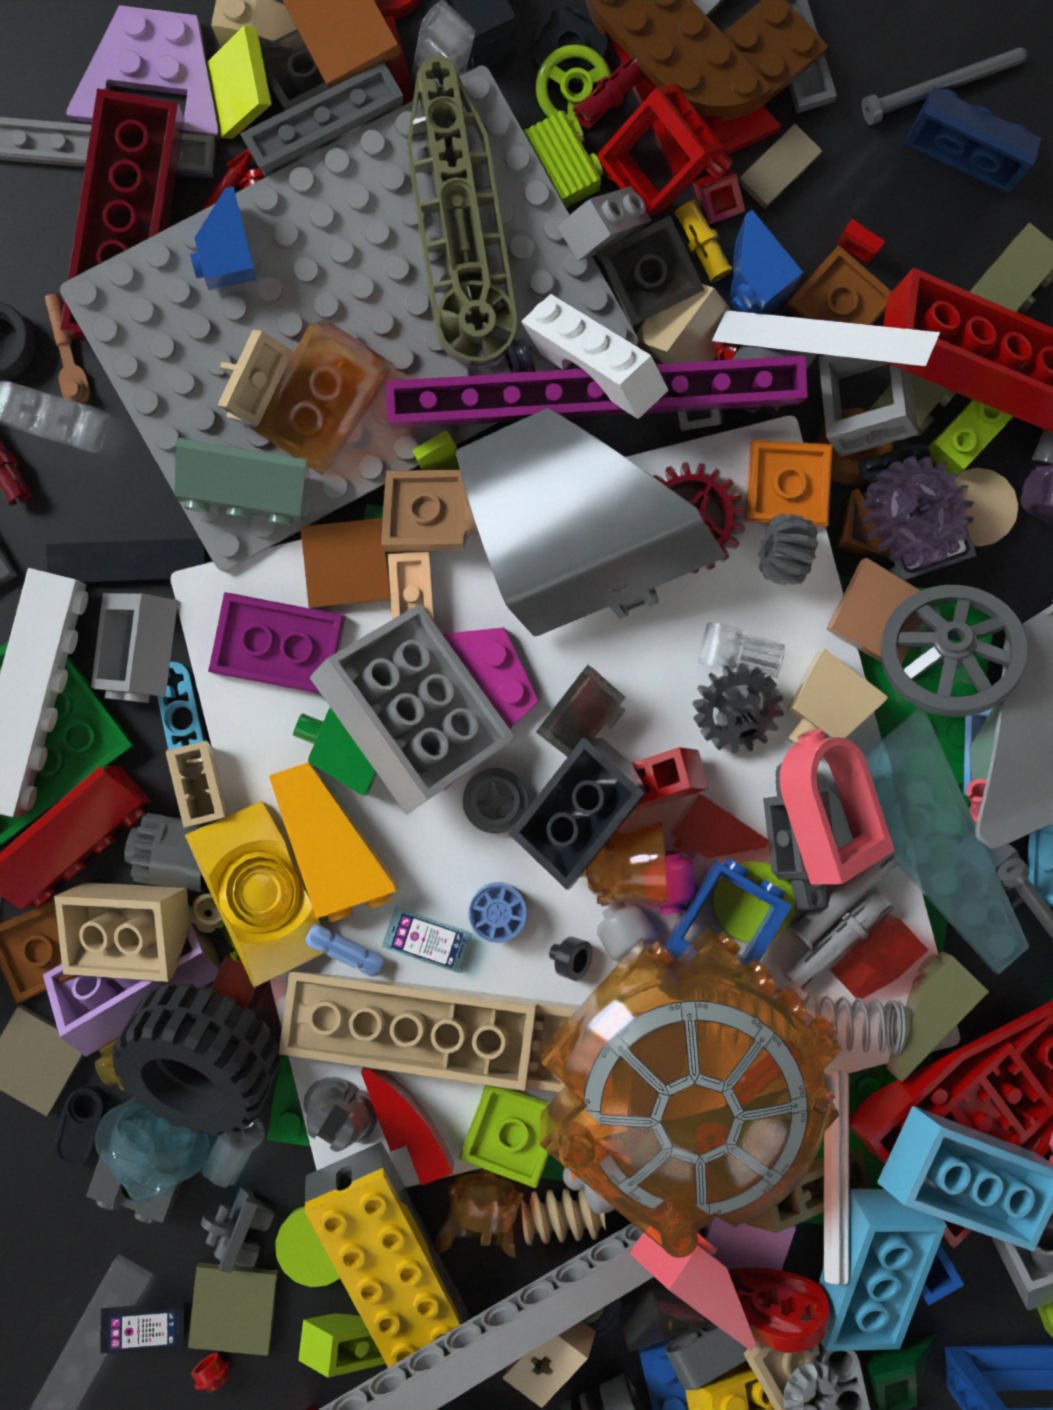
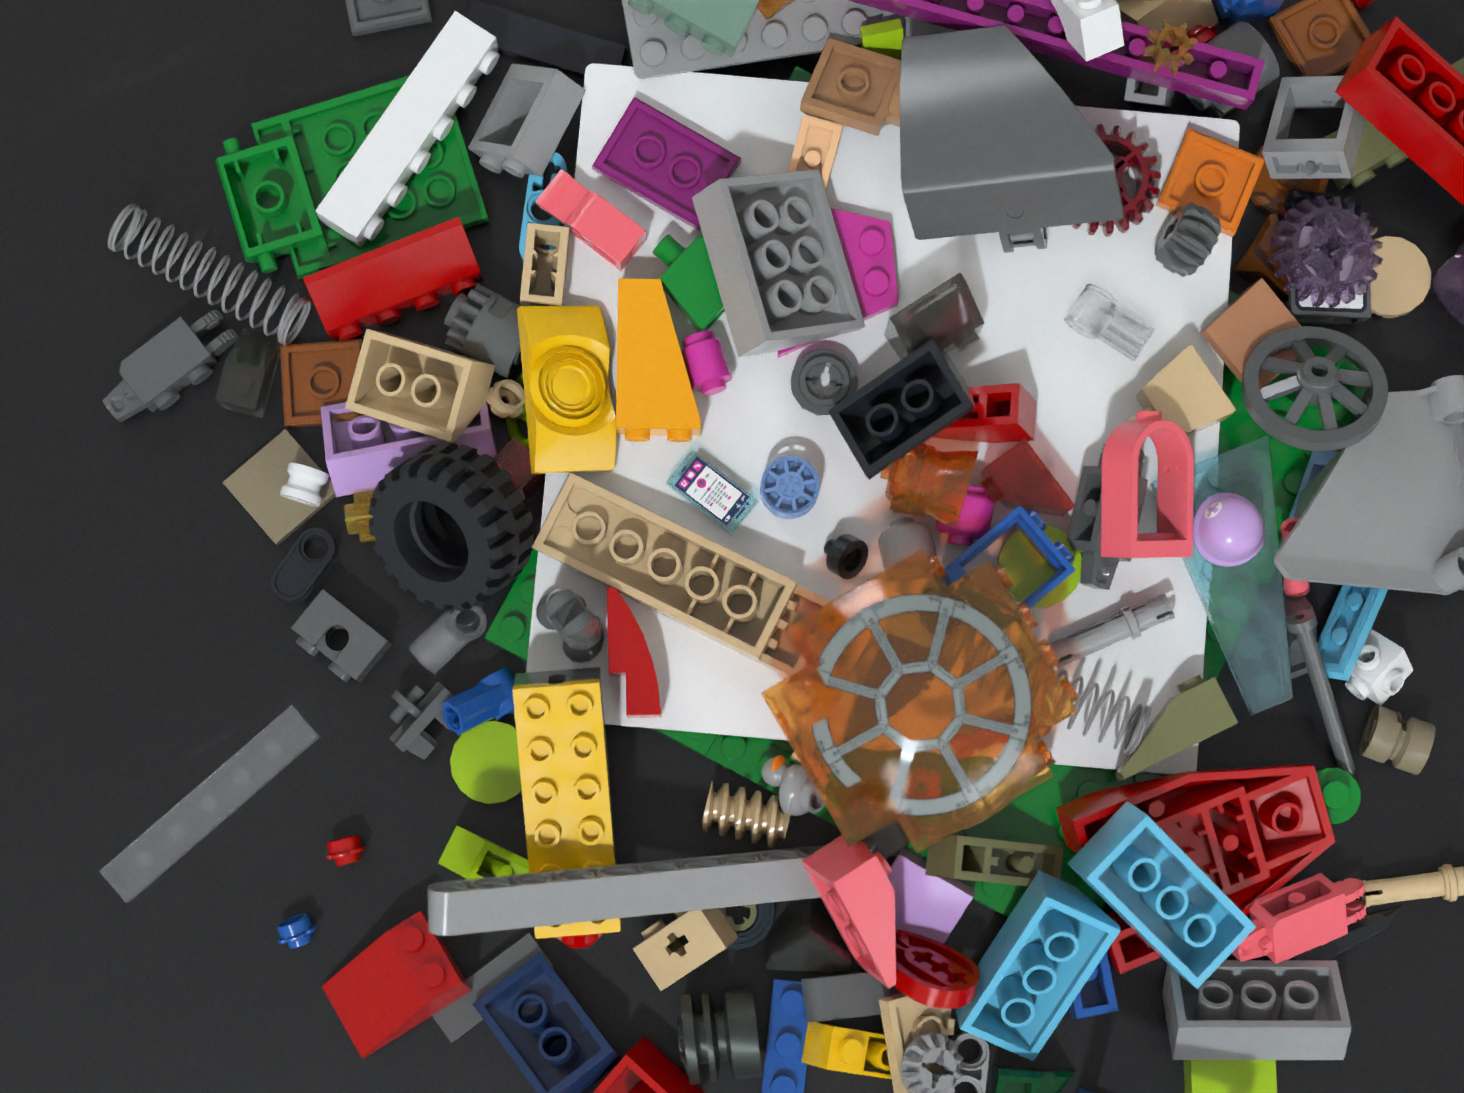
camera: 15 degrees right, 5 degrees down
(50, 1058) = (304, 484): none -> white wheel
(142, 1327) = (295, 779): tile -> none
(148, 1151) = (371, 601): clear light blue piece -> none
(225, 723) = (592, 220): none -> coral piece
(233, 1309) = (388, 796): olive tile -> none
(285, 1200) = (482, 703): none -> blue piece
(344, 950) = (629, 471): light blue axle -> none
(345, 563) = (758, 111): dark orange tile -> none
(379, 822) = (706, 363): none -> dark pink brick
(482, 1209) = (668, 780): clear orange hat -> none
(507, 1135) = (725, 706): lime tile -> none
(714, 363) = (1177, 38): none -> clear yellow gear
(737, 691) = (1100, 361): black gear -> none
(827, 337) = (1290, 53): white sticker -> none
(837, 1183) = (1029, 855): axle -> none
(840, 901) = (1127, 591): light grey pin -> none
(879, 958) = (1142, 659): clear red slope -> none
(918, 811) = (1228, 530): none -> lavender helmet
(967, 435) = (1403, 201): lime brick -> none

